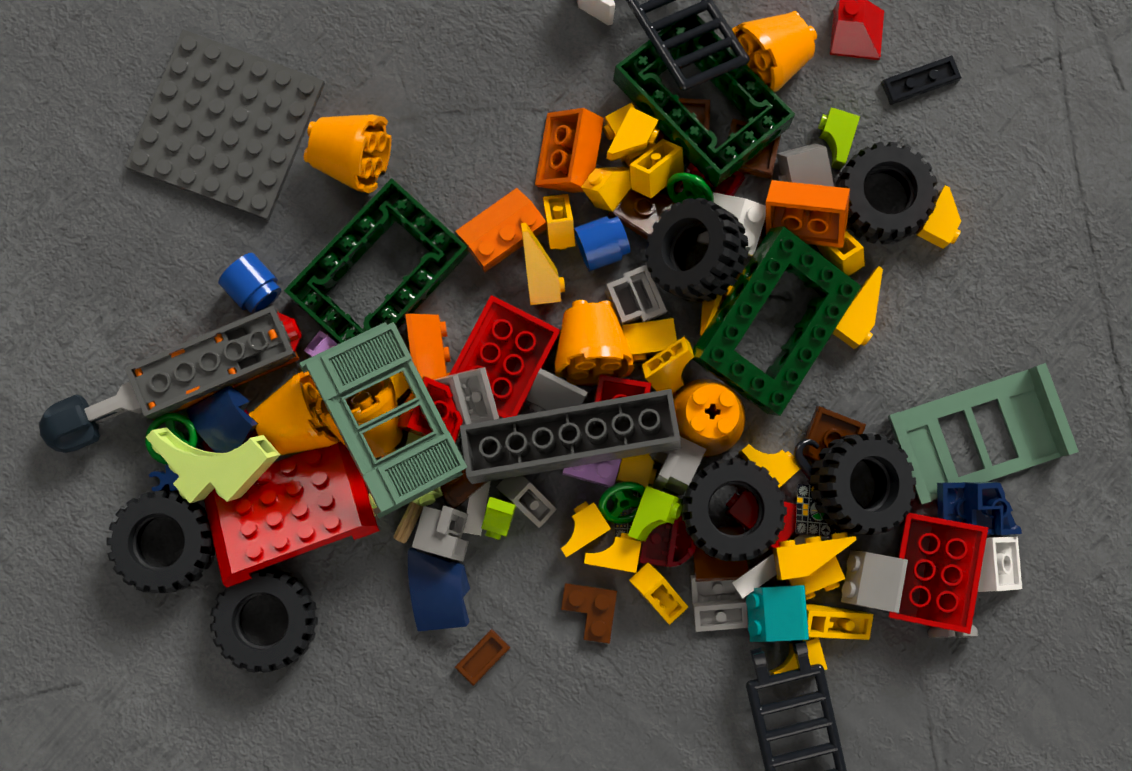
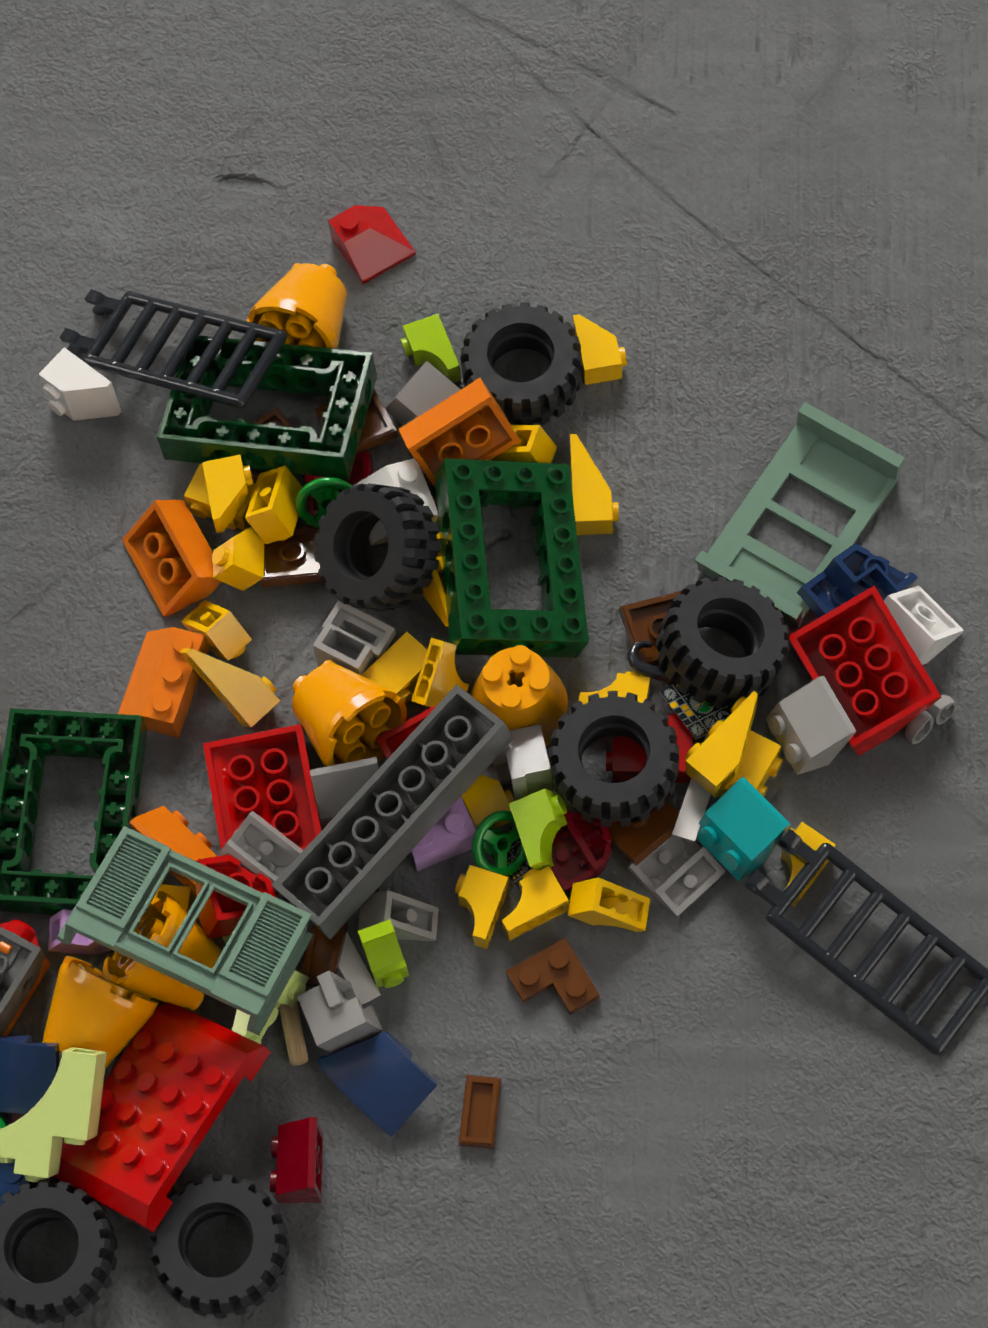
camera: 25 degrees left, 15 degrees down
(349, 605) = (298, 1162): none -> dark red slope
(601, 242) = (276, 615): blue piece -> none
(838, 622) = (812, 795): yellow slope -> none
(921, 80) = (471, 242): black tile -> none

